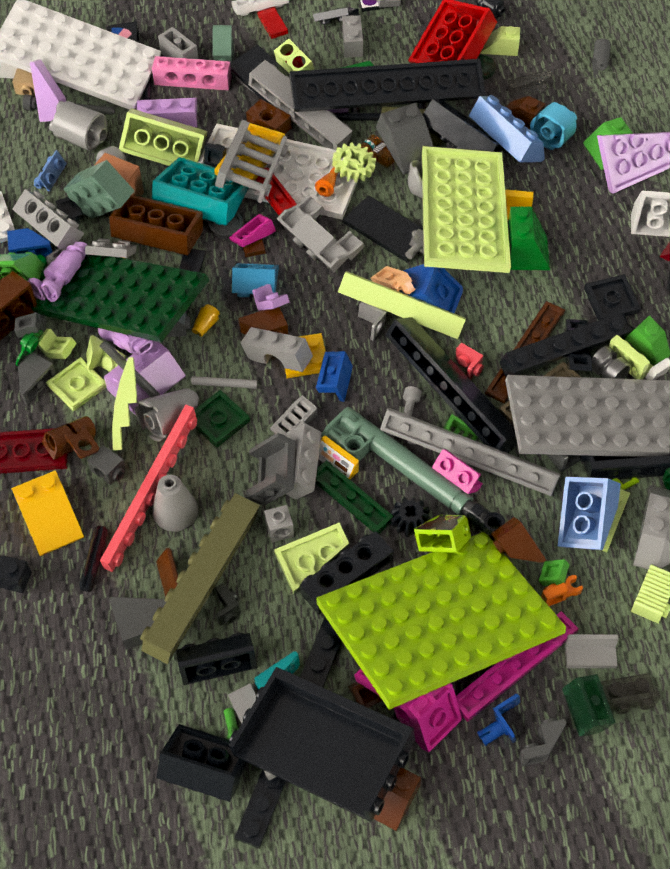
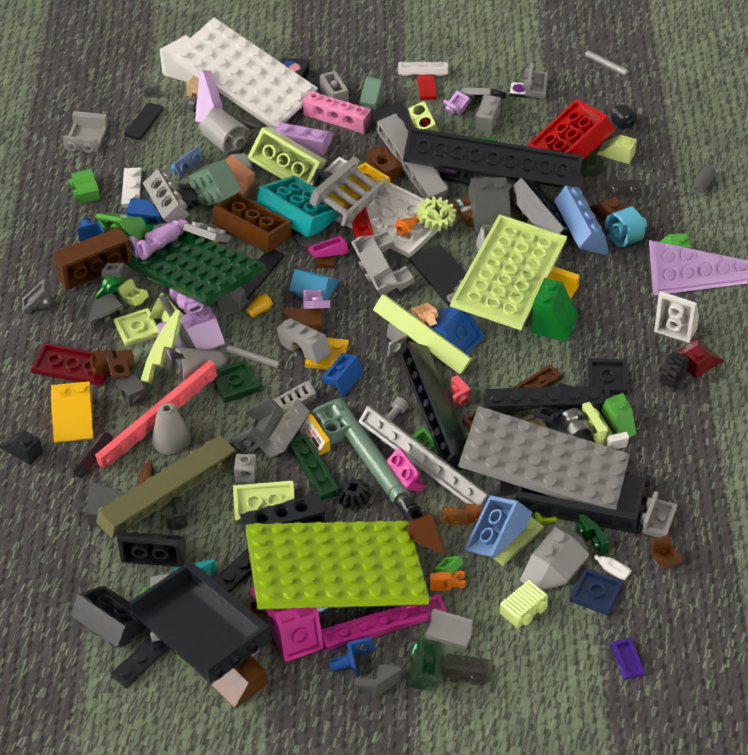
camera: 20 degrees right, 10 degrees down
(314, 32) = (457, 103): none -> lavender bracket
(450, 530) = (379, 510): lime torso -> none
(546, 504) = (467, 515): none -> clear orange slope

